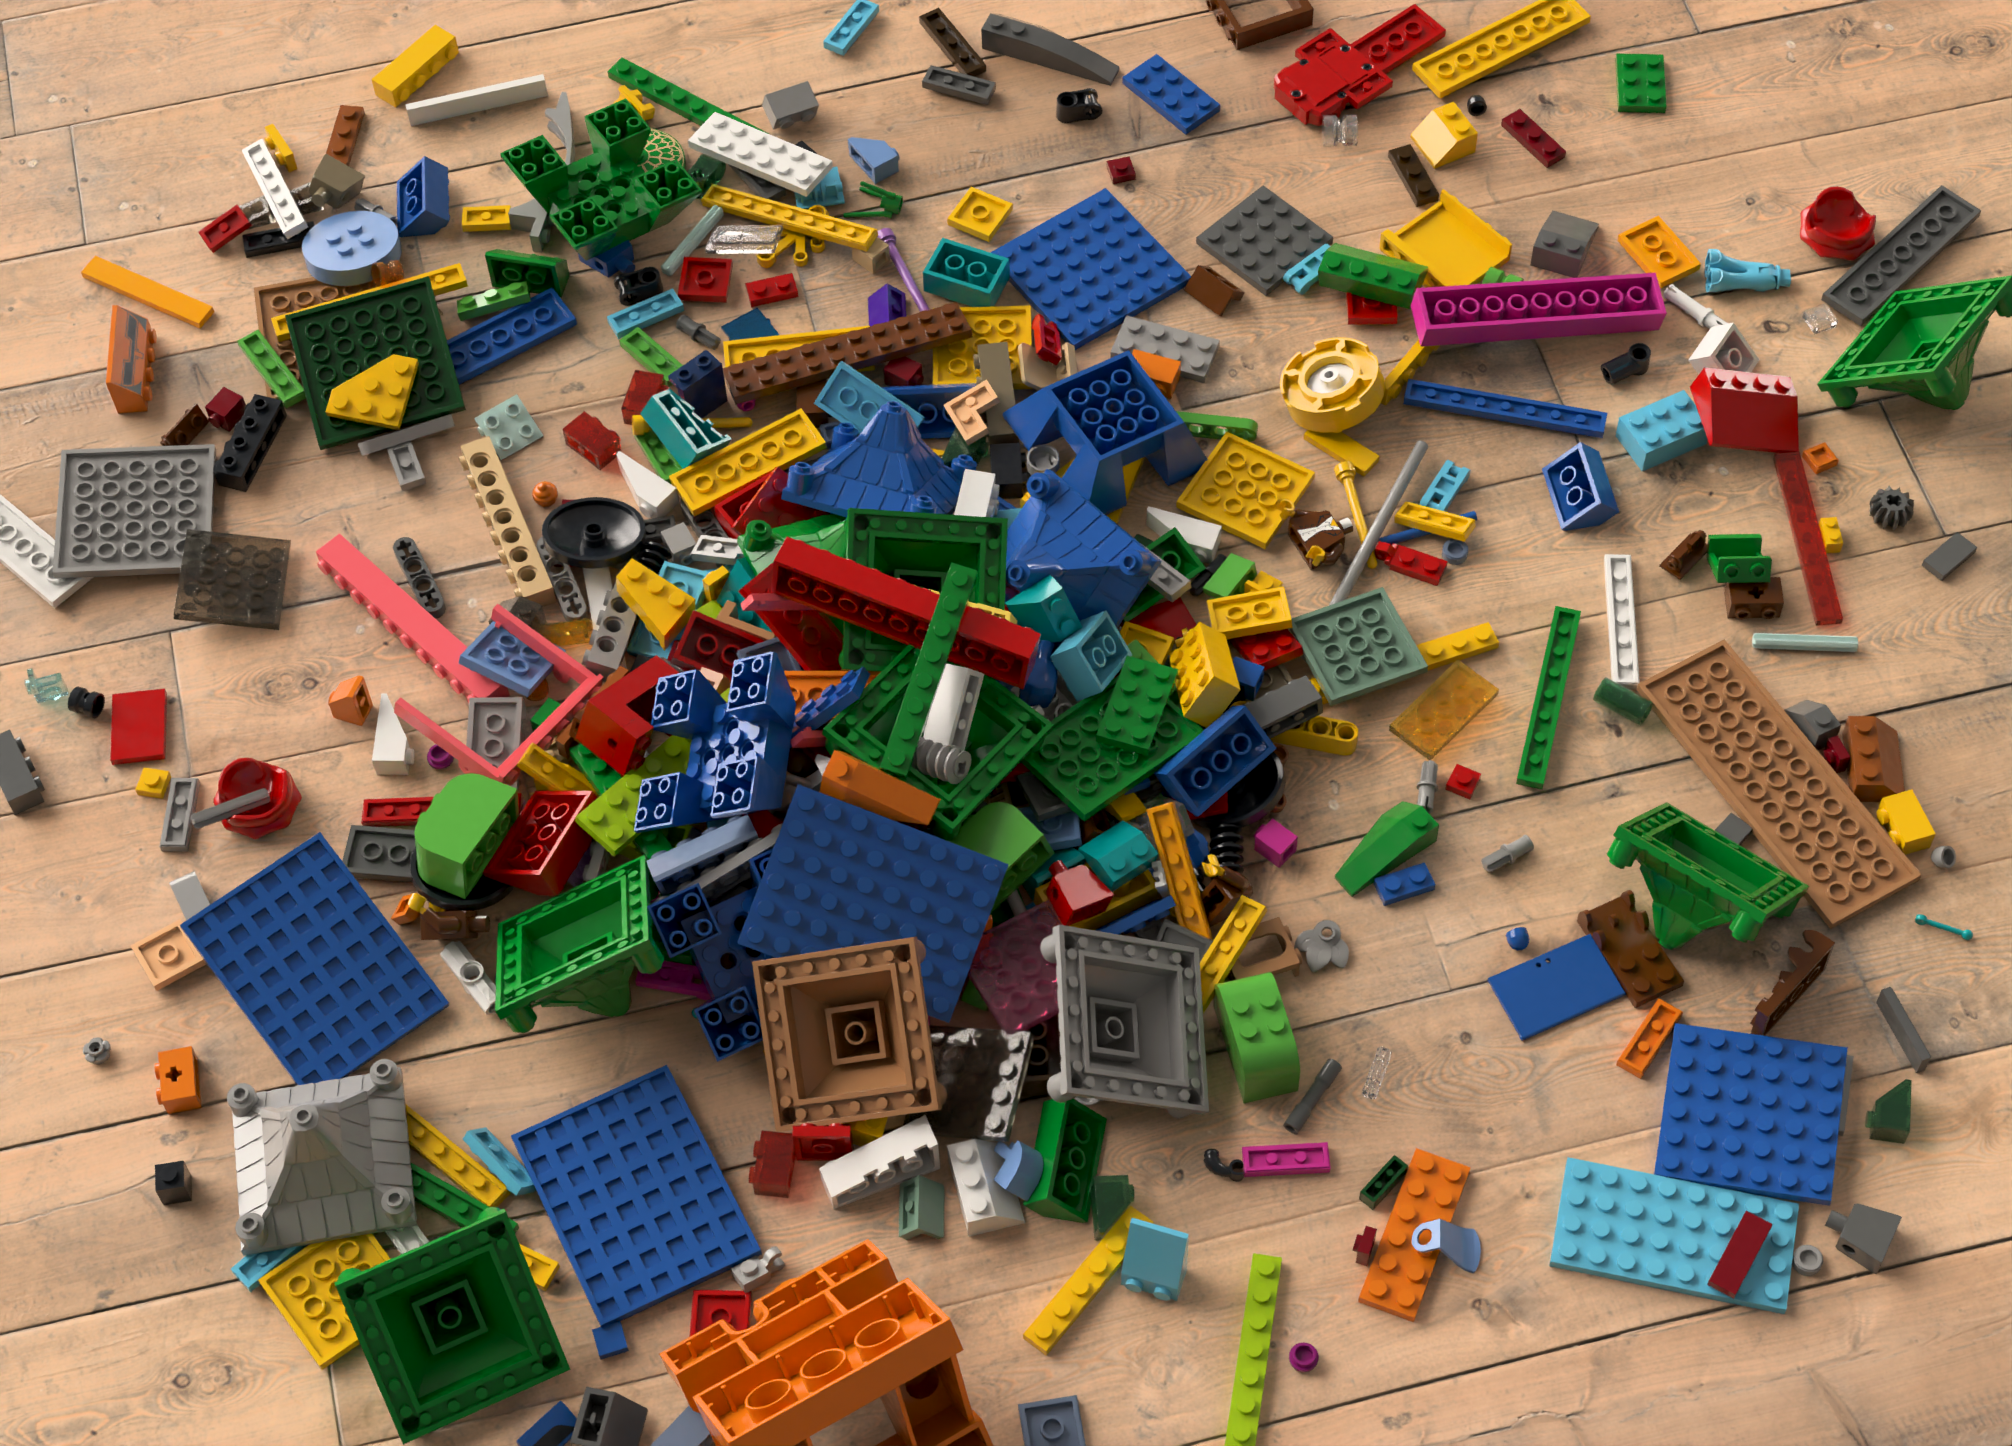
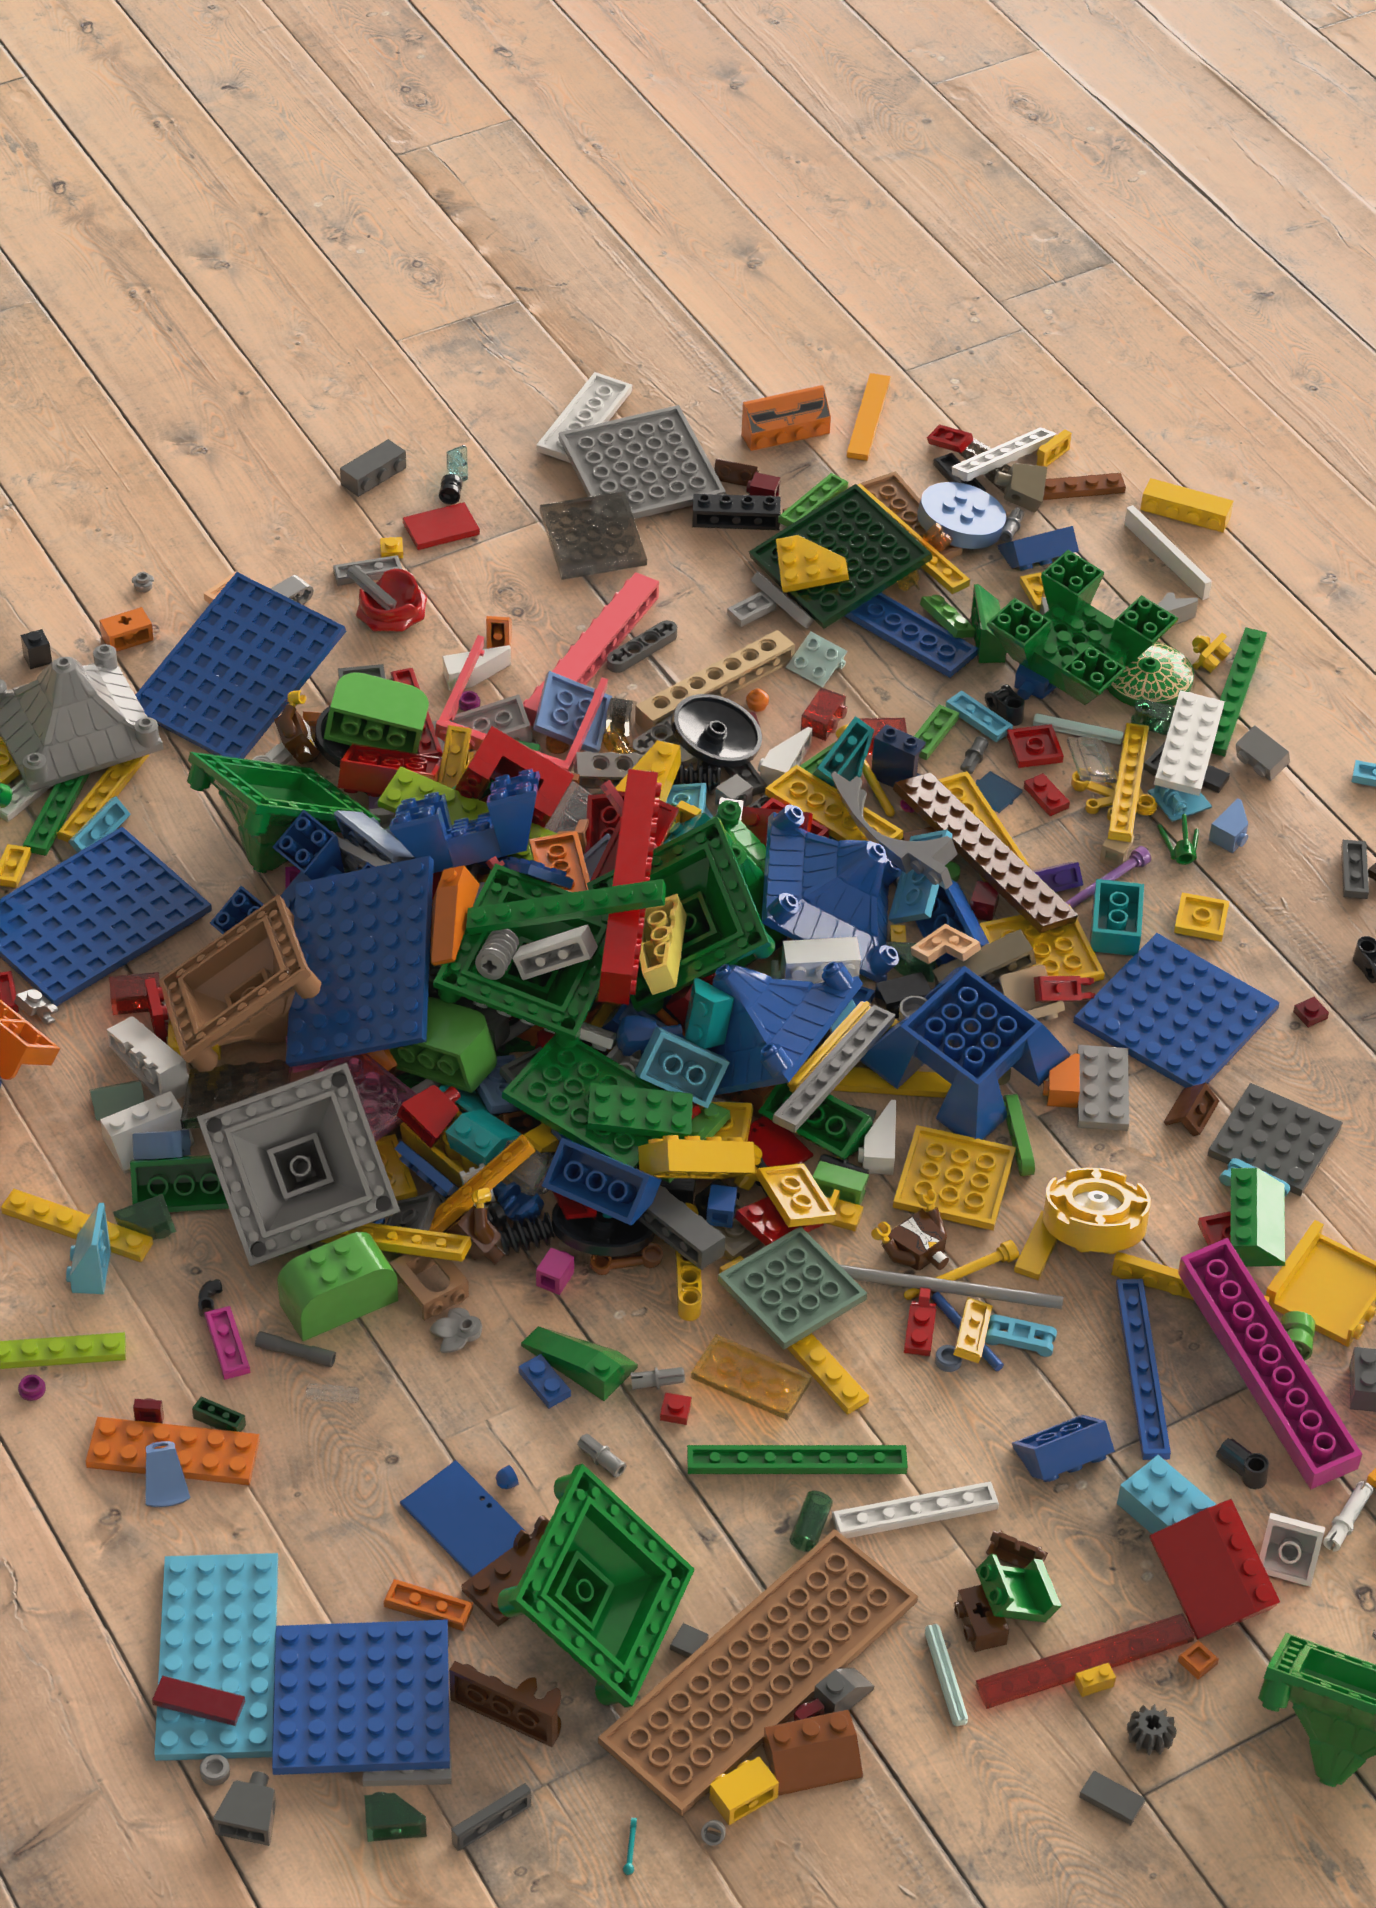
camera: 70 degrees right, 10 degrees down
(869, 391) = (922, 856): none -> light grey slope

